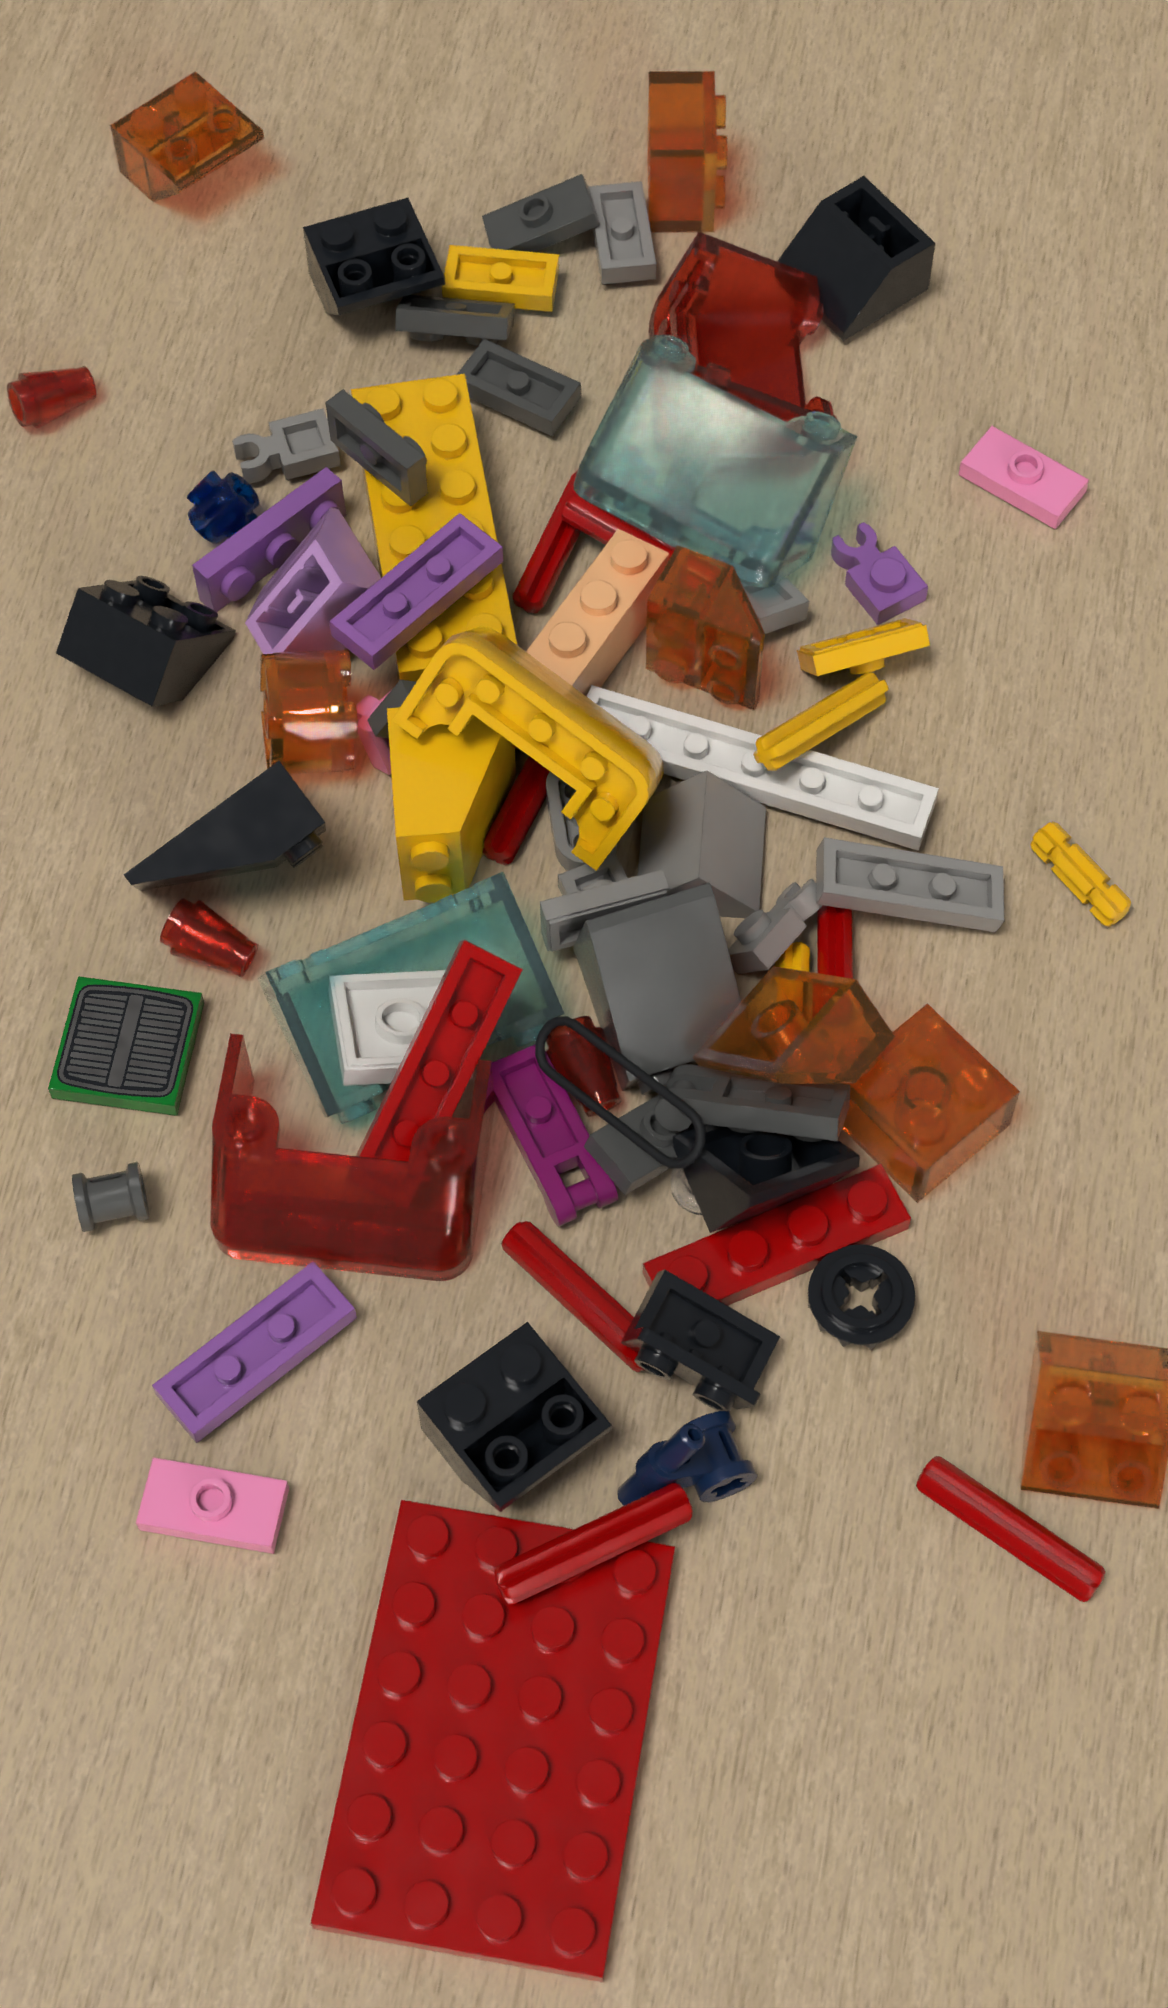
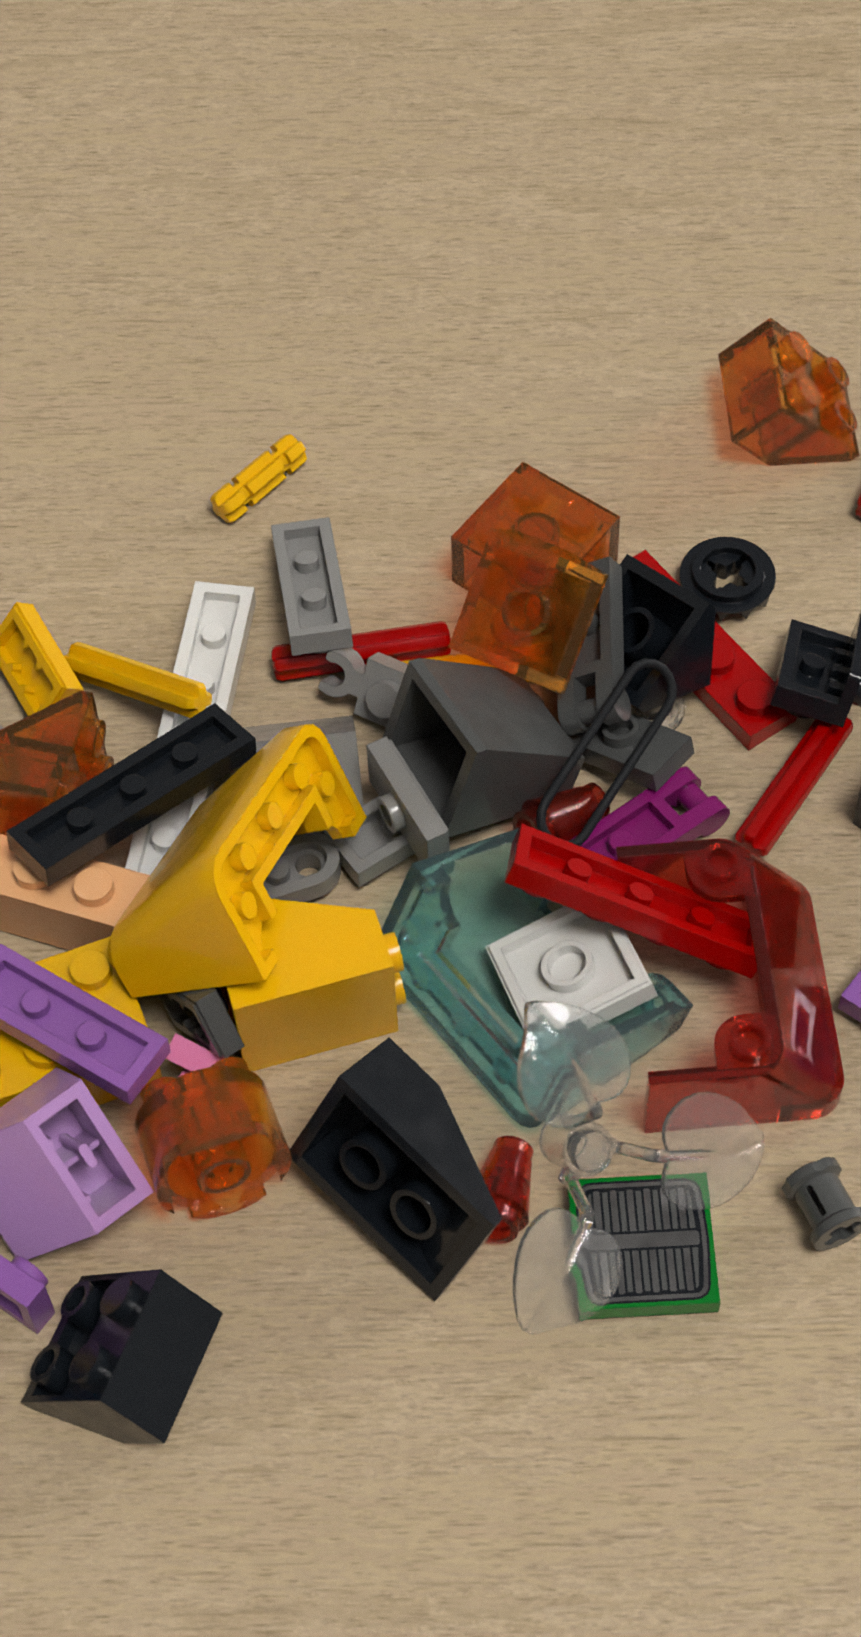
camera: 100 degrees left, 5 degrees down
(214, 922) = (563, 1073): none -> clear plant
(651, 673) = (131, 794): none -> black plate

